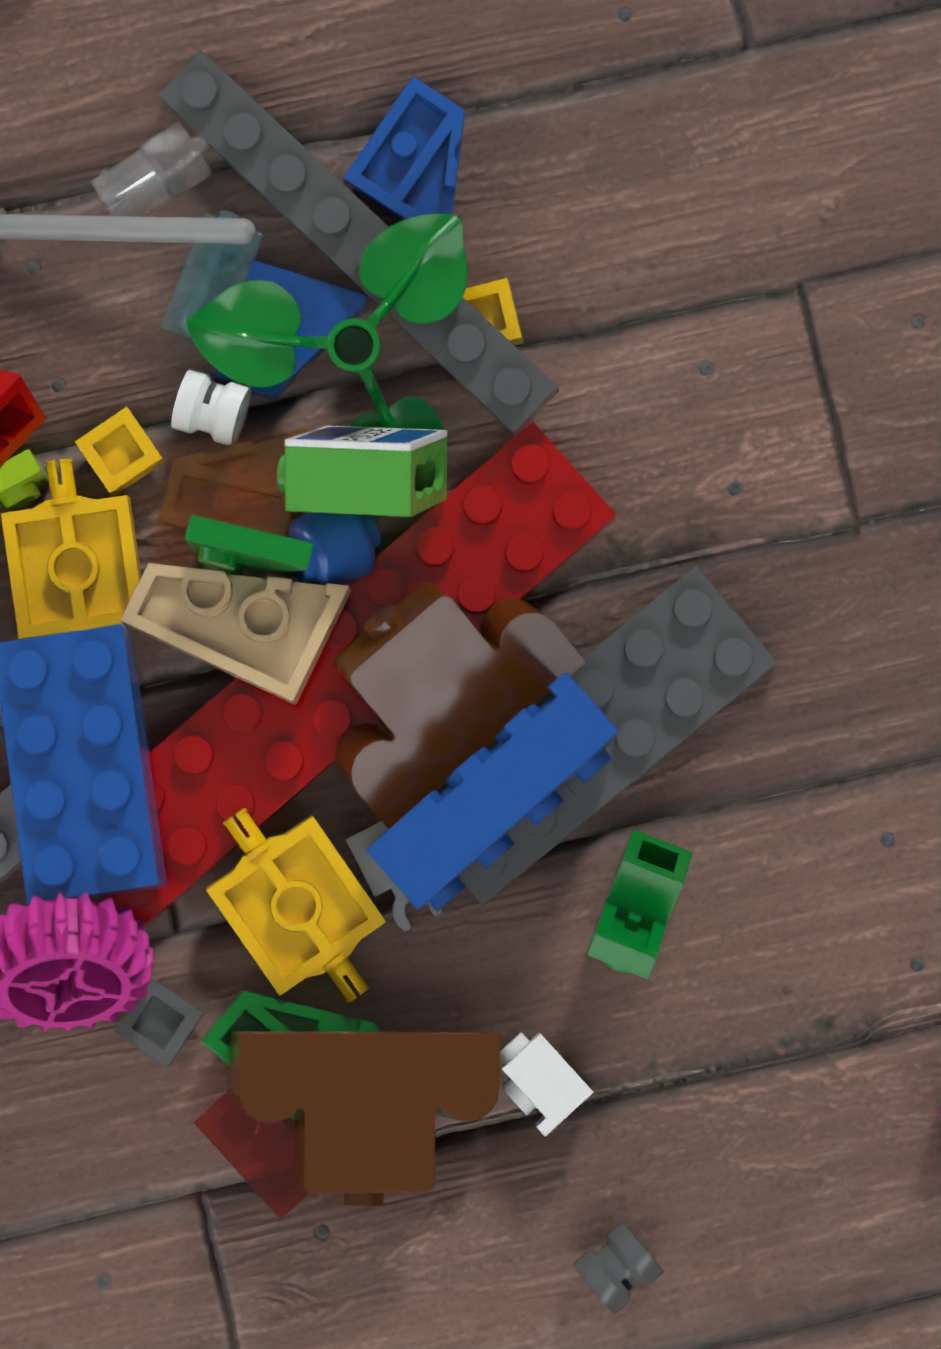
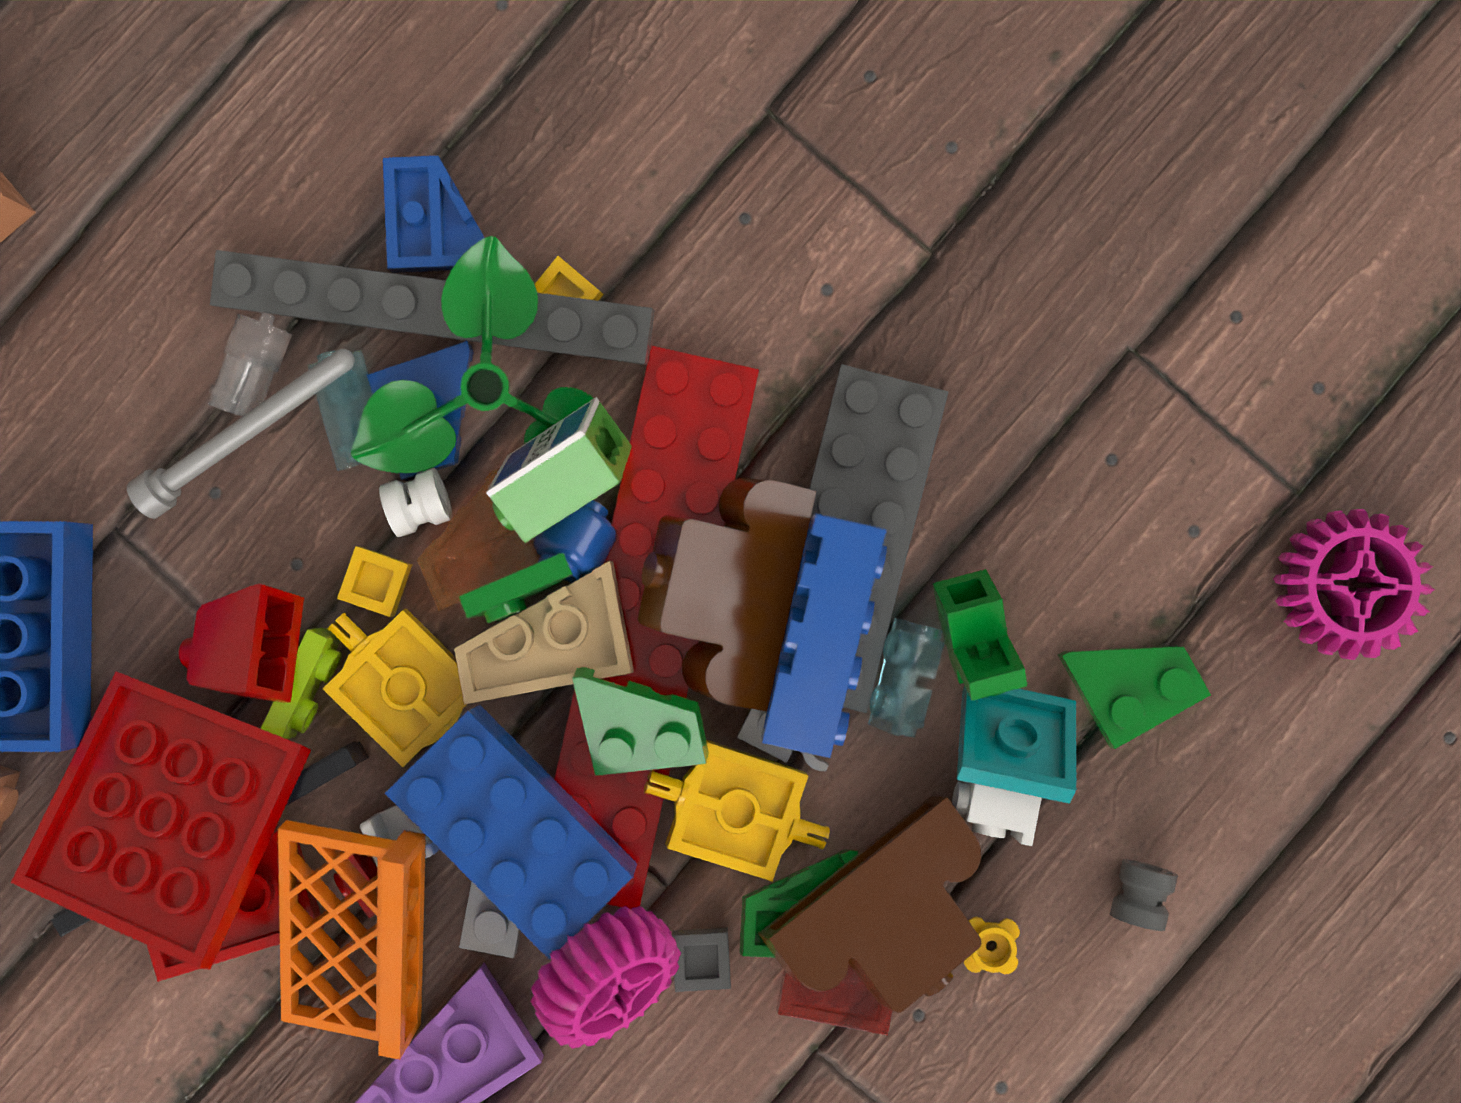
camera: 35 degrees left, 5 degrees up
(262, 756) = (637, 727): none -> wing
(440, 1230) = (1003, 957): none -> yellow plate
(562, 878) = (896, 701): none -> clear light blue hinge
(604, 1032) = (1019, 743): none -> teal plate
(752, 1067) = (1134, 687): none -> green wing

